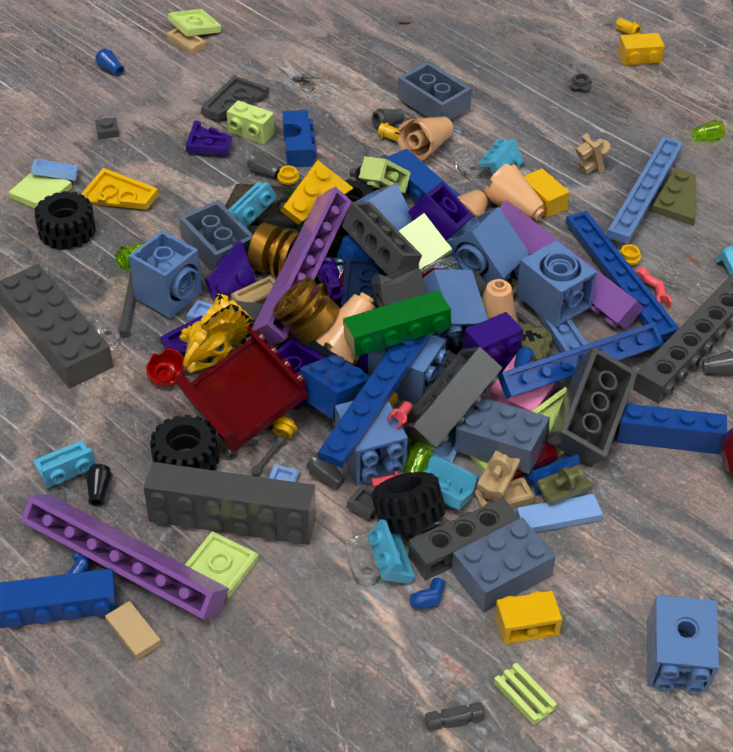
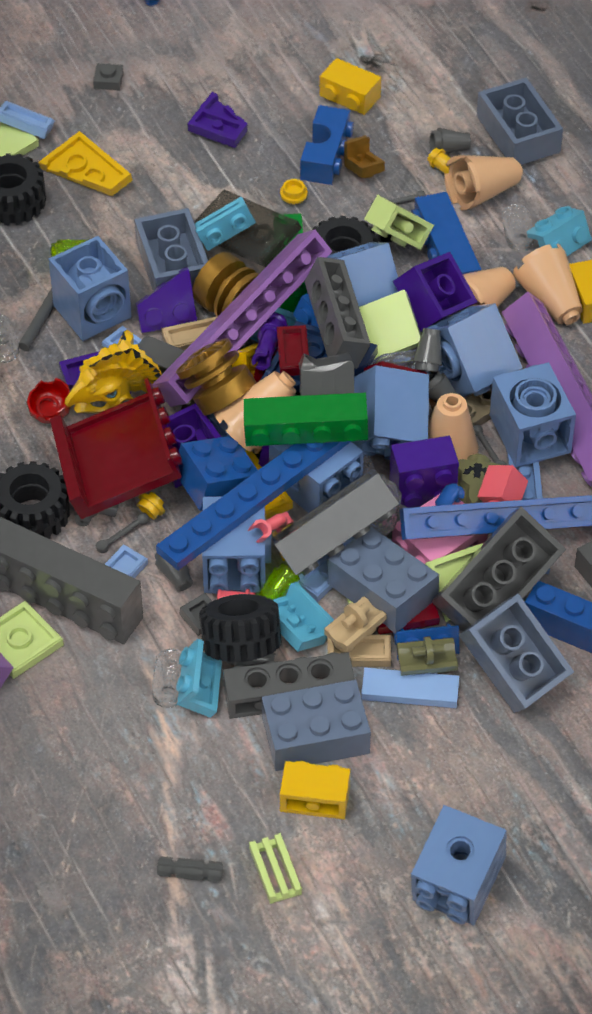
camera: 20 degrees right, 5 degrees up
(234, 90) = (273, 69): dark grey wing -> none
(251, 122) = (277, 109): yellowish green brick -> none
(262, 164) = (267, 168): dark grey cone -> none
(296, 95) = (350, 86): none -> yellow brick
(315, 183) = (305, 215): yellow wing -> none
(328, 144) = (360, 159): none -> pearl gold bracket
(355, 276) = (291, 346): none -> dark red tile
(428, 598) = (222, 738): blue arm -> none
(460, 254) = (428, 353): none -> dark grey cone
(556, 339) = (502, 484): none -> coral brick
(637, 461) = (516, 653): none -> sand blue brick

